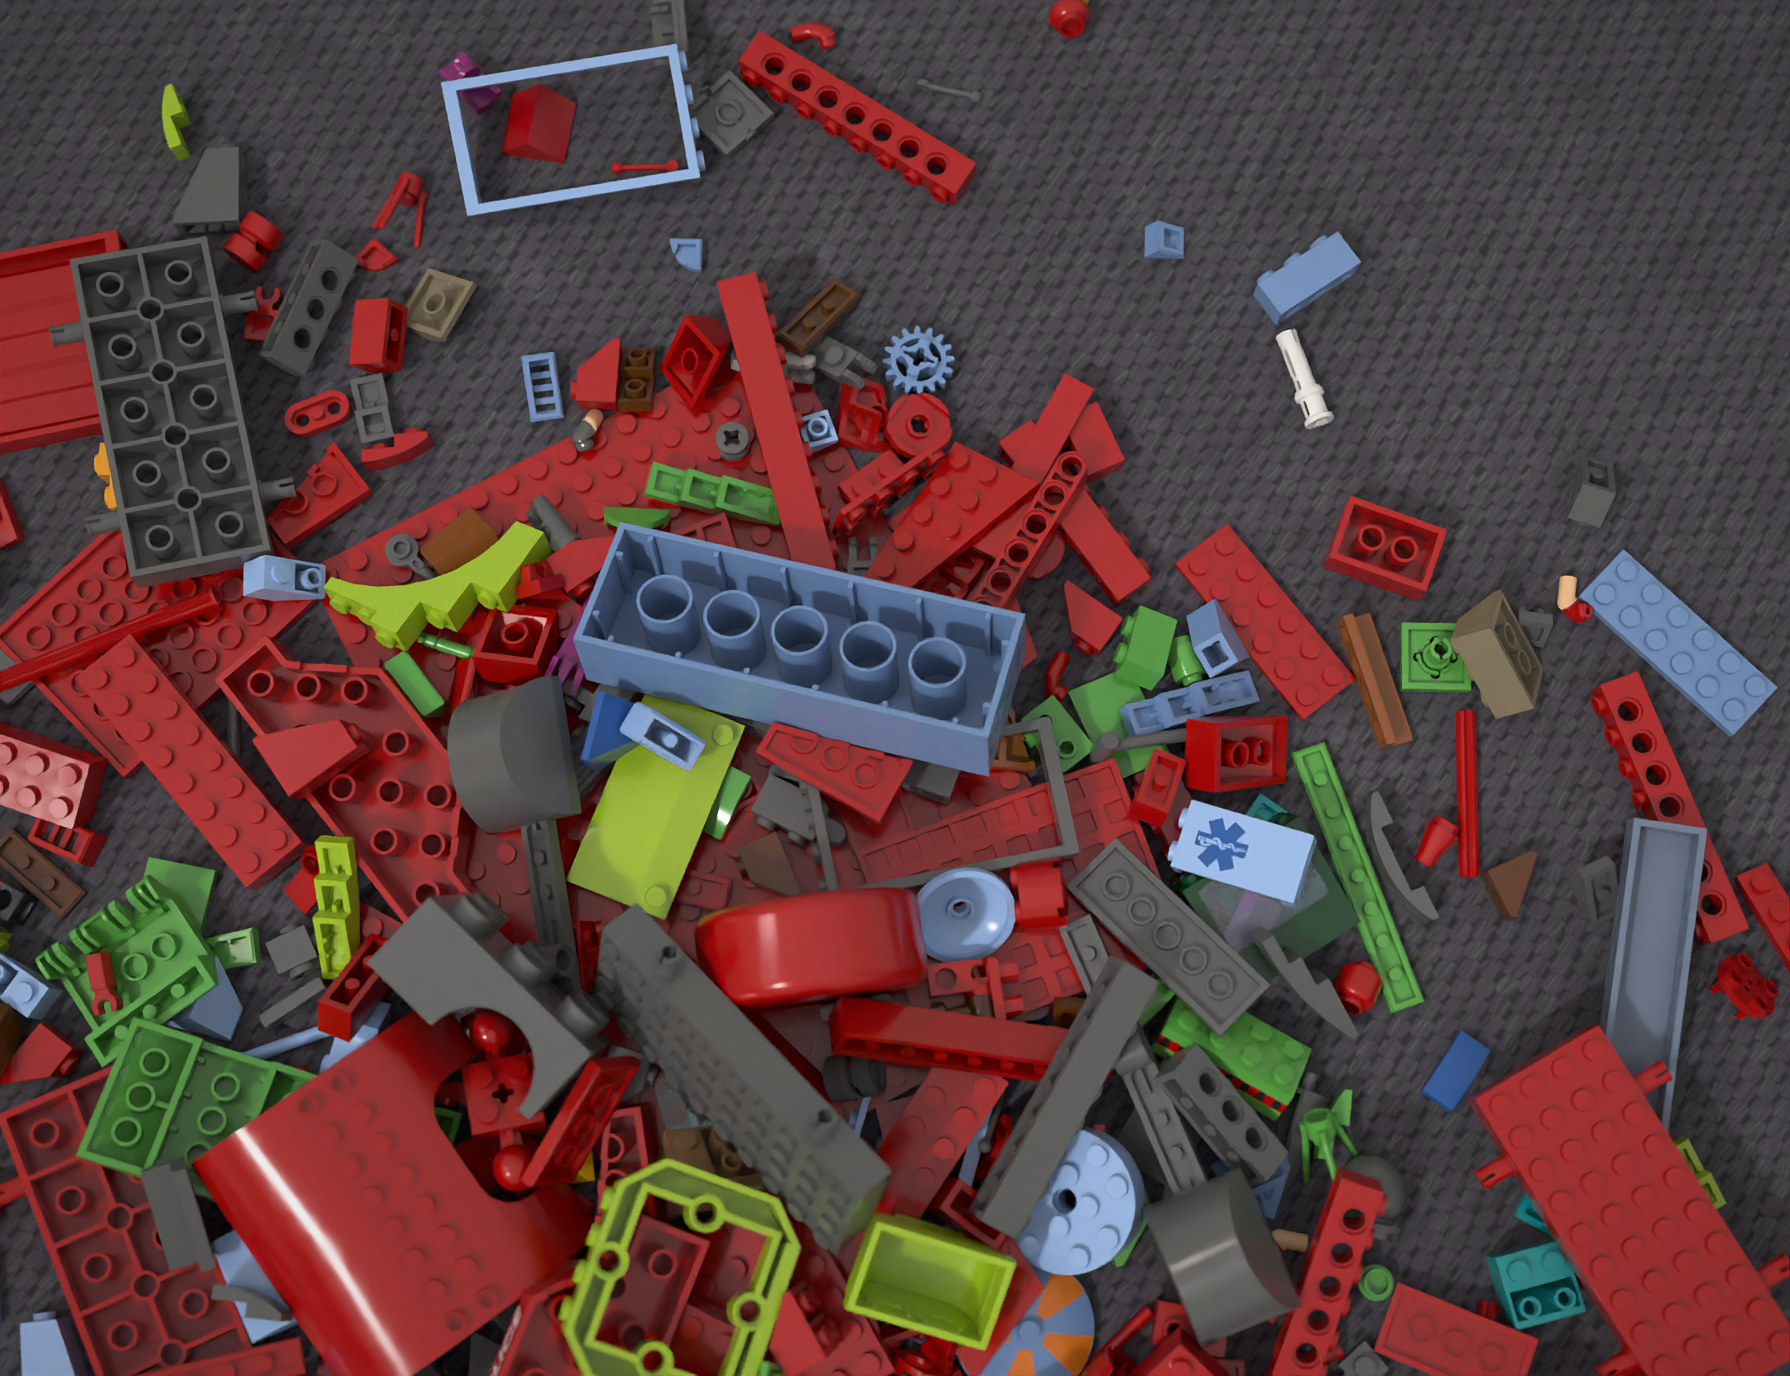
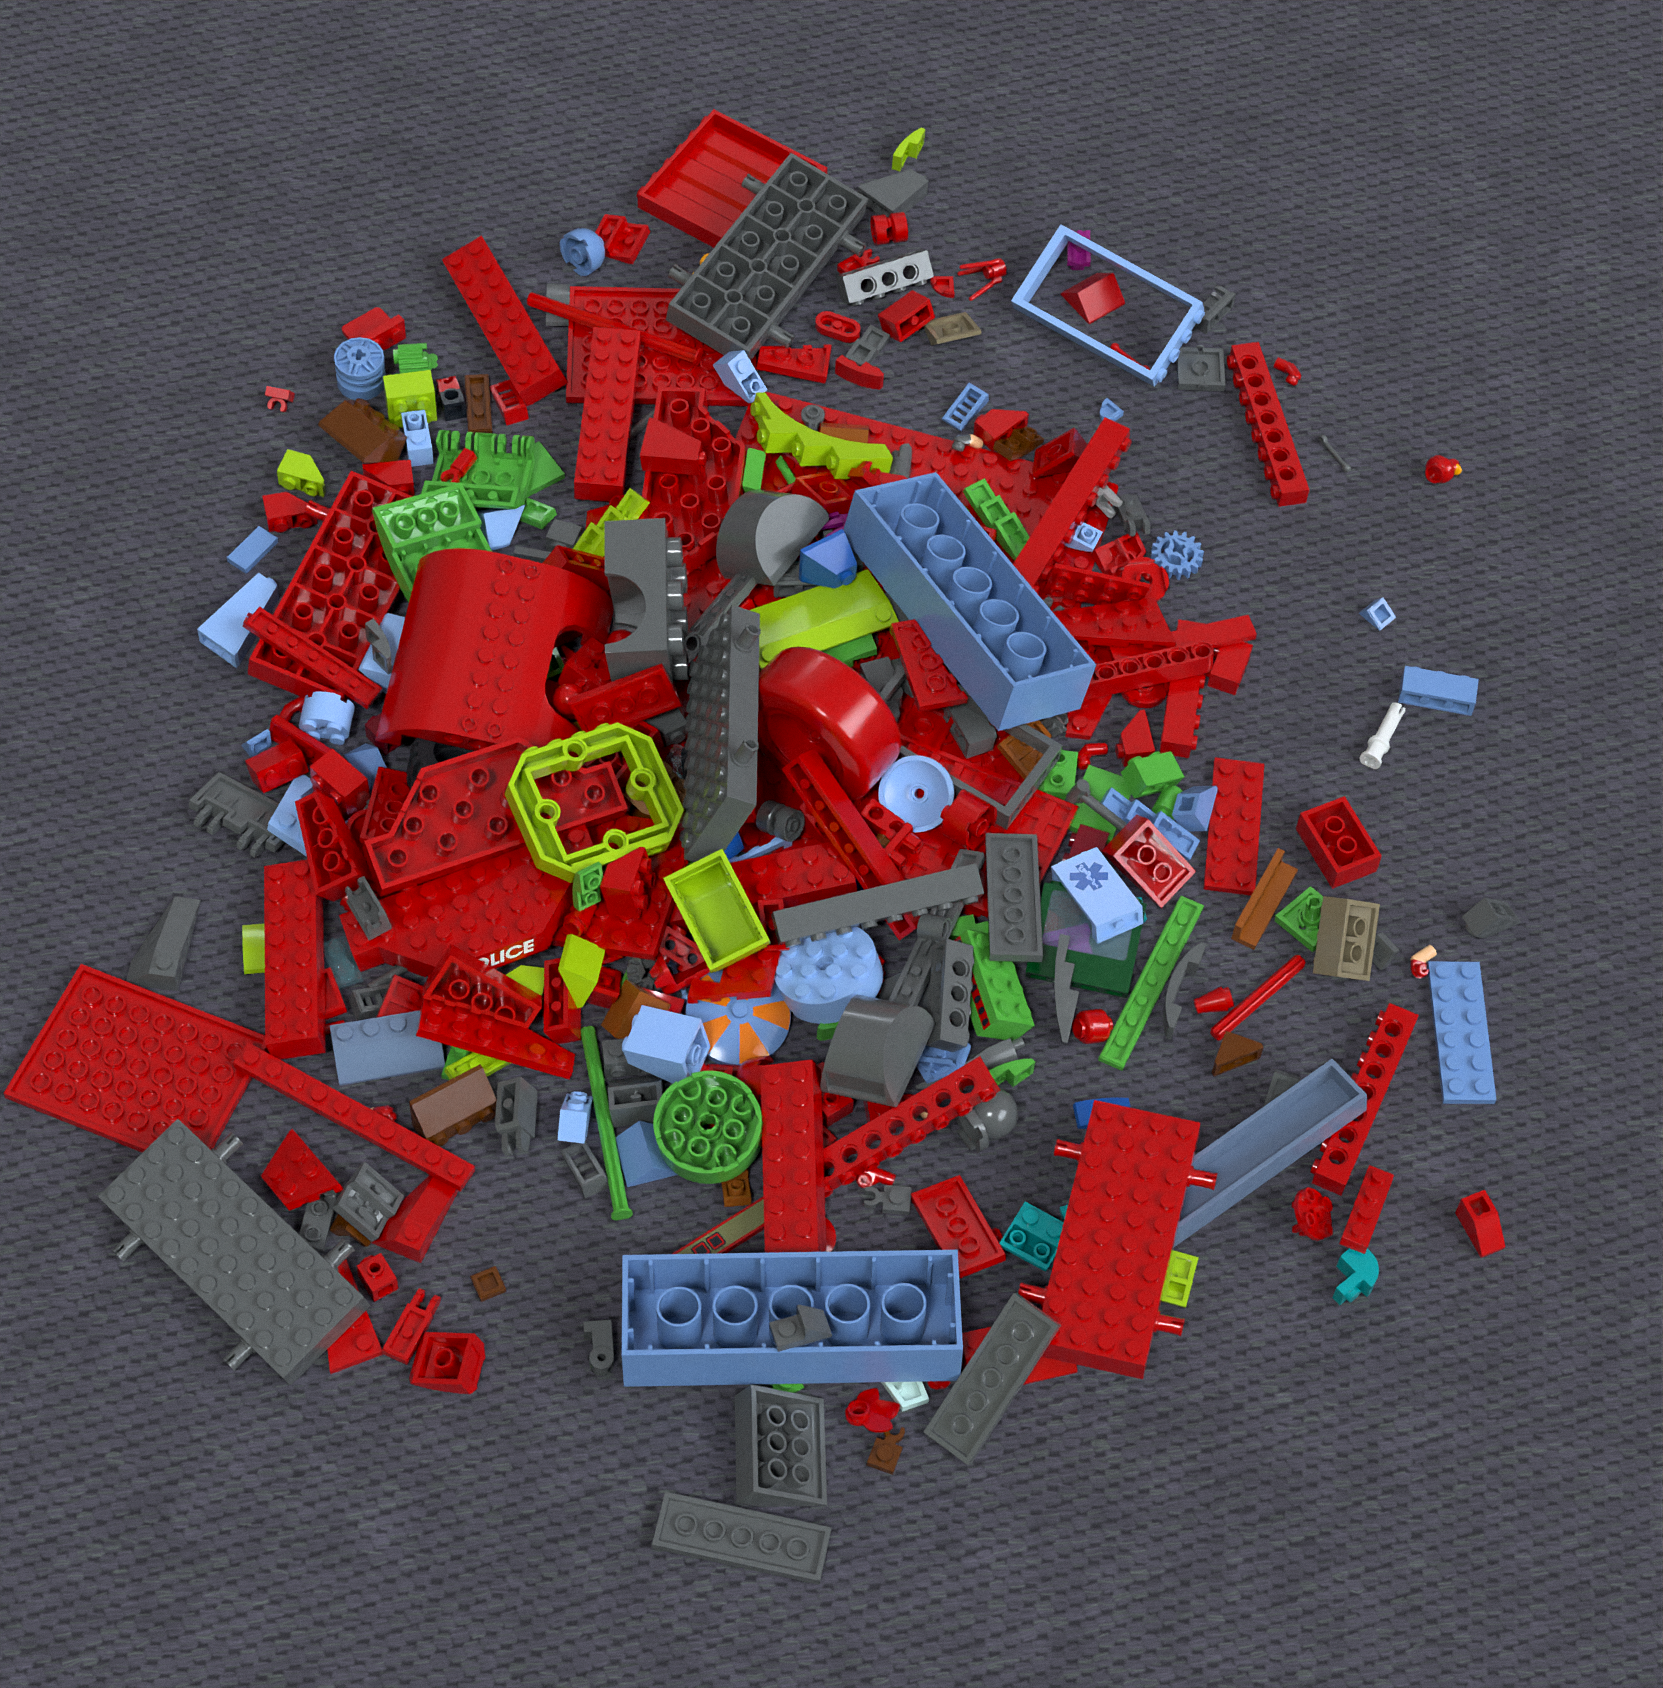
camera: 40 degrees right, 20 degrees down
(178, 1215) = (388, 580): dark grey panel -> none
(662, 736) = (852, 580): light blue brick -> none
(732, 448) = (1031, 510): dark grey wheel -> none
(818, 318) = (1144, 490): reddish brown tile -> none
(1157, 788) = (1079, 832): red plate -> none
(1320, 1127) = (996, 1057): bright green plant -> none
(1376, 1282) = (947, 1168): bright green plate -> none

